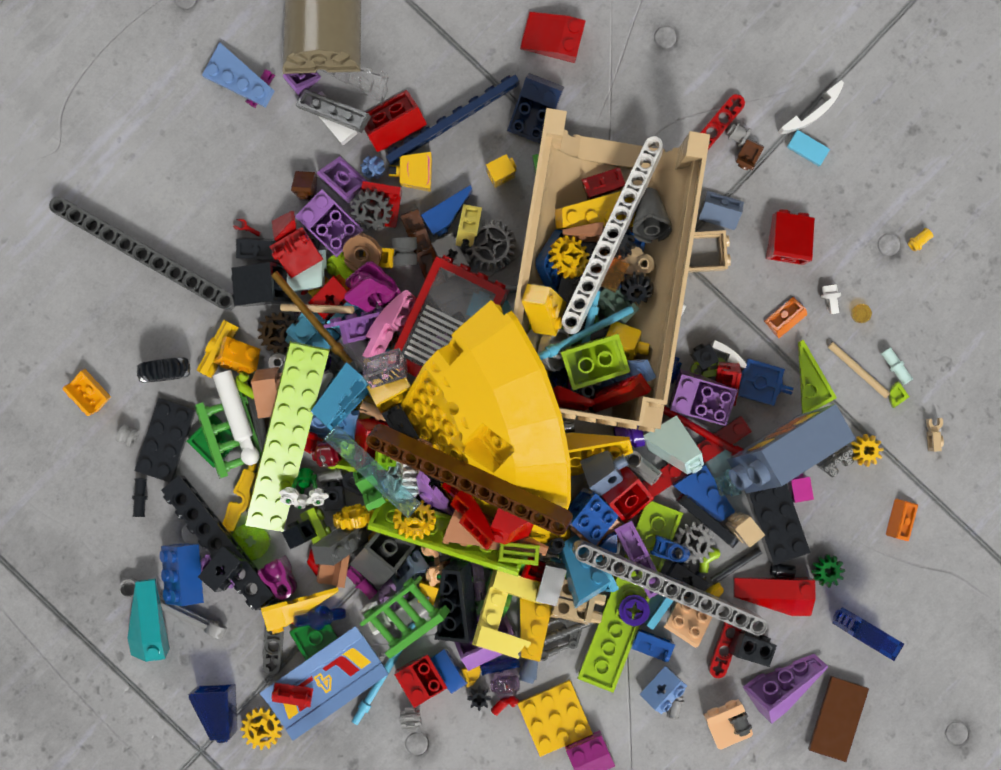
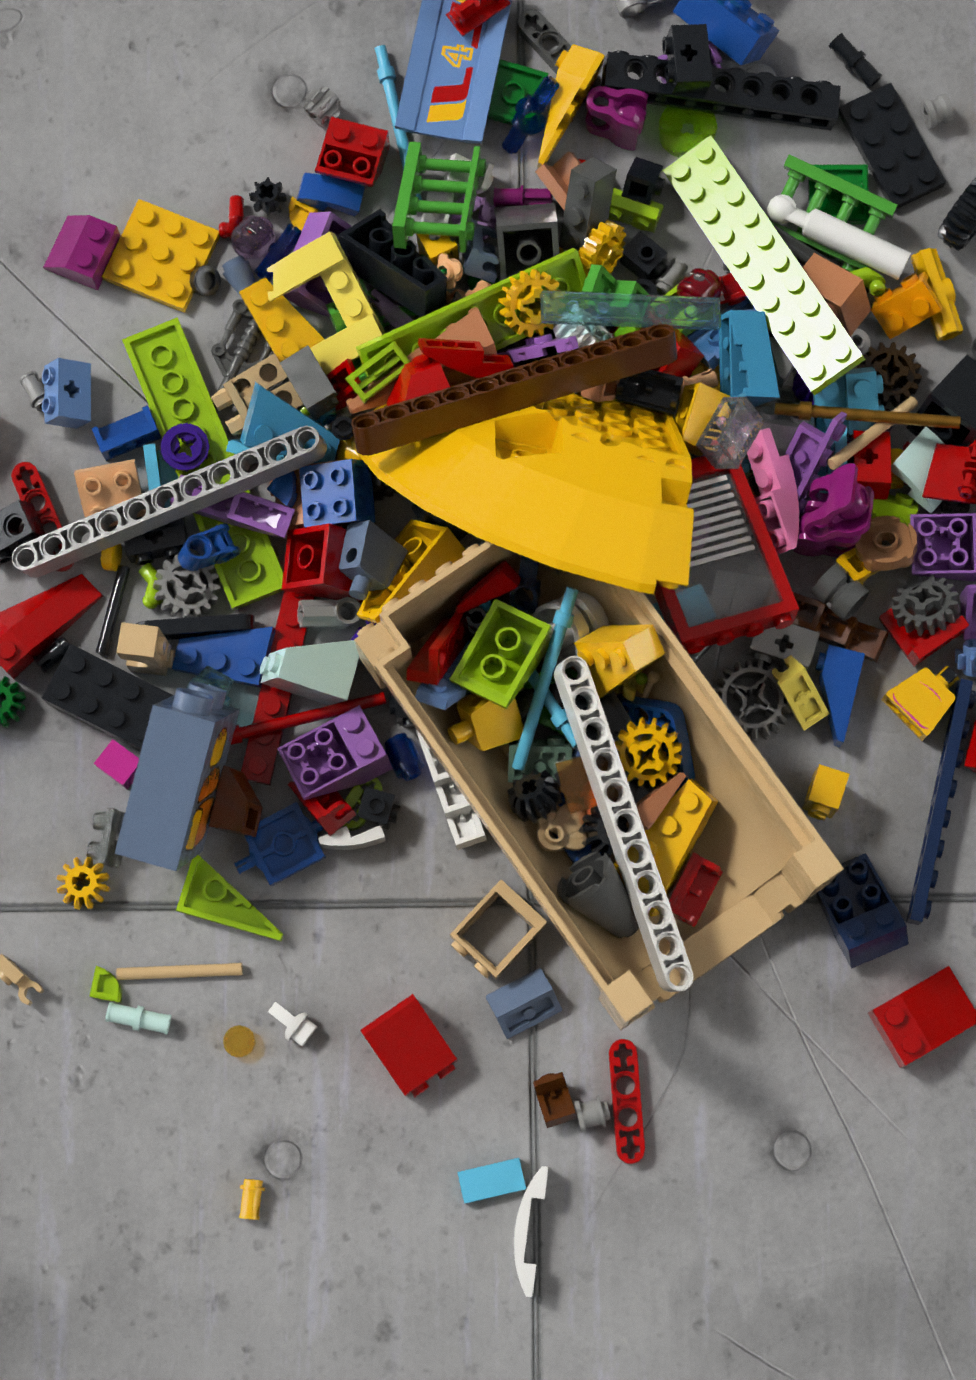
camera: 140 degrees right, 10 degrees down
(242, 489) = (751, 173): yellow piece -> none
(305, 478) = (664, 233): white plant -> none
(547, 684) = (205, 280): none -> black tile
(767, 418) = (235, 805): none -> reddish brown slope
(786, 317) = (325, 950): orange slope -> none

